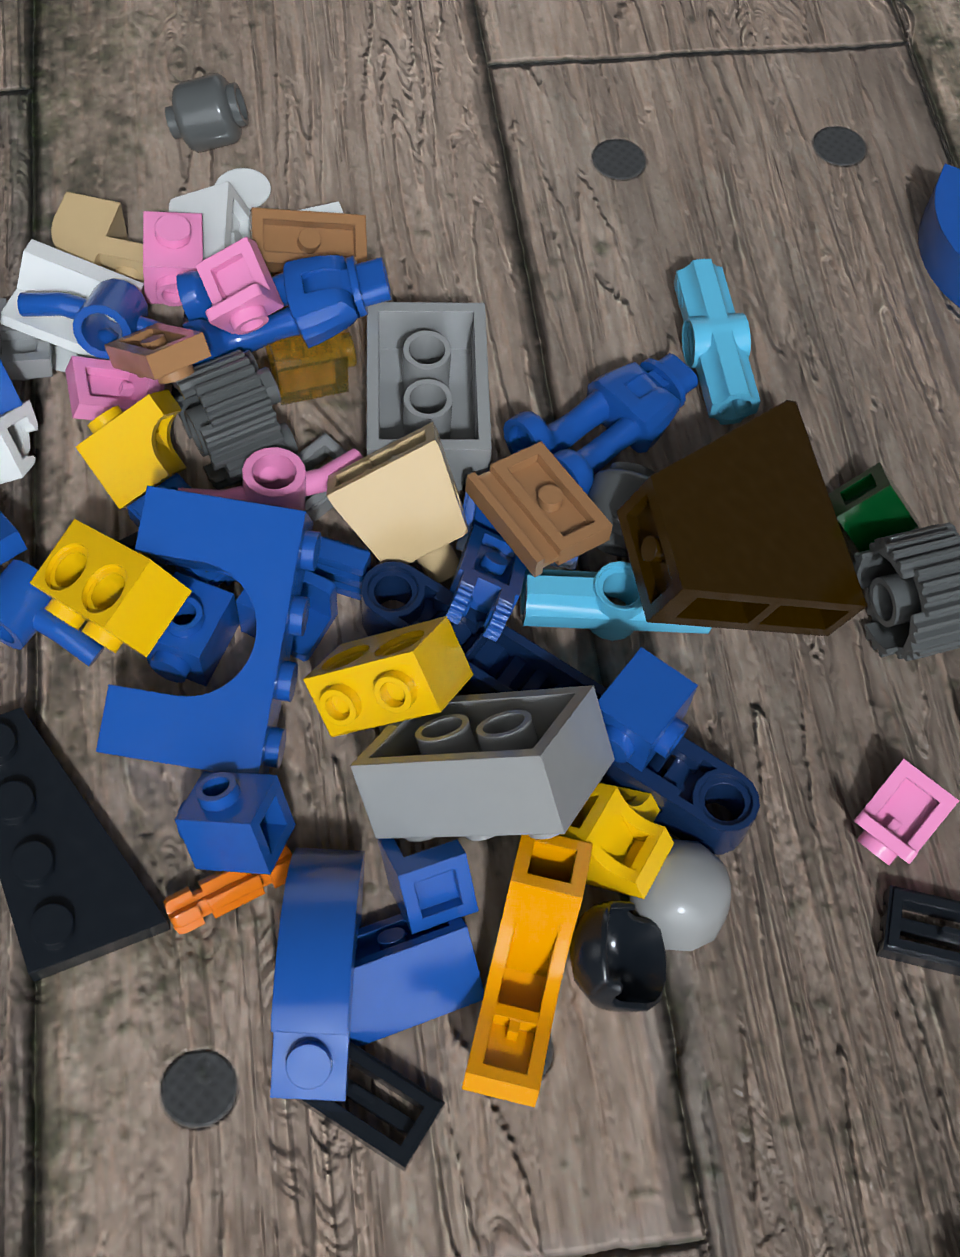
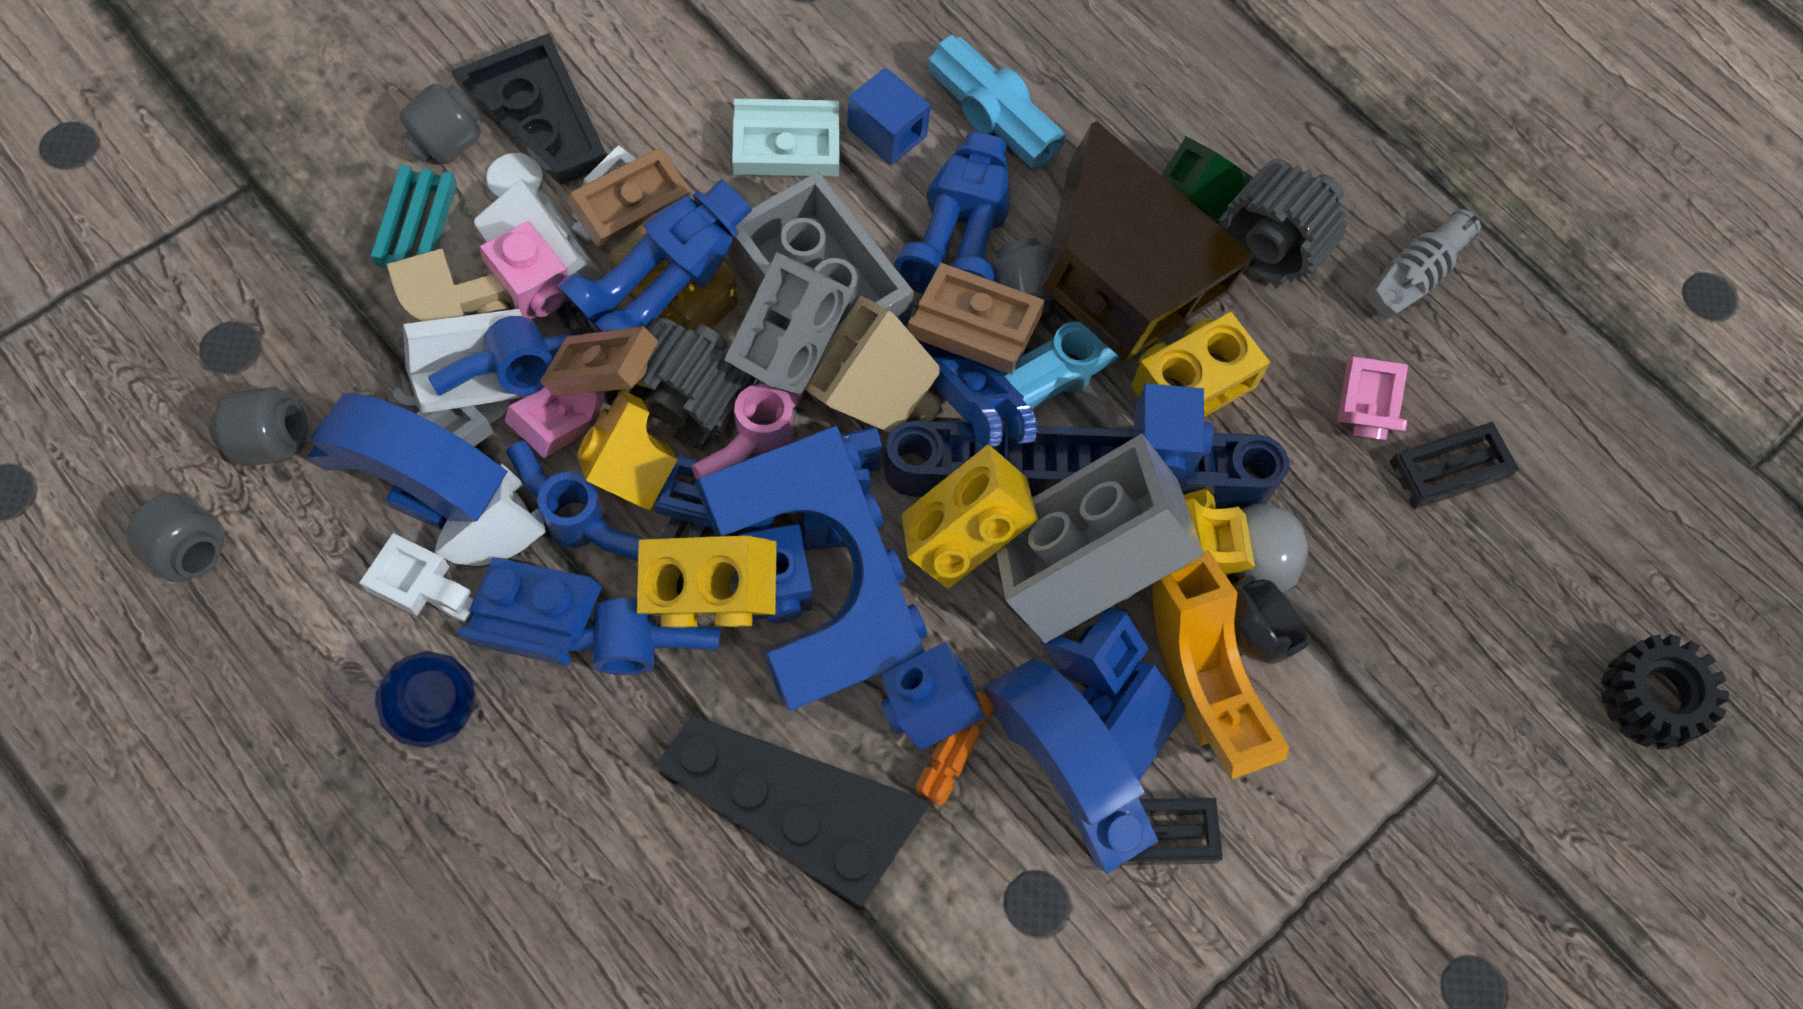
camera: 35 degrees left, 5 degrees up
(55, 466) = (565, 489): none -> blue piece
(129, 166) = (396, 208): none -> teal tile
(239, 288) = (627, 270): bright pink bracket -> none
(301, 138) = (536, 105): none -> black wing
(339, 406) = (788, 324): none -> light grey brick
(497, 271) = (785, 137): none -> light aqua plate
(602, 301) = (888, 116): none -> blue panel
(735, 701) = (1193, 366): none -> yellow brick

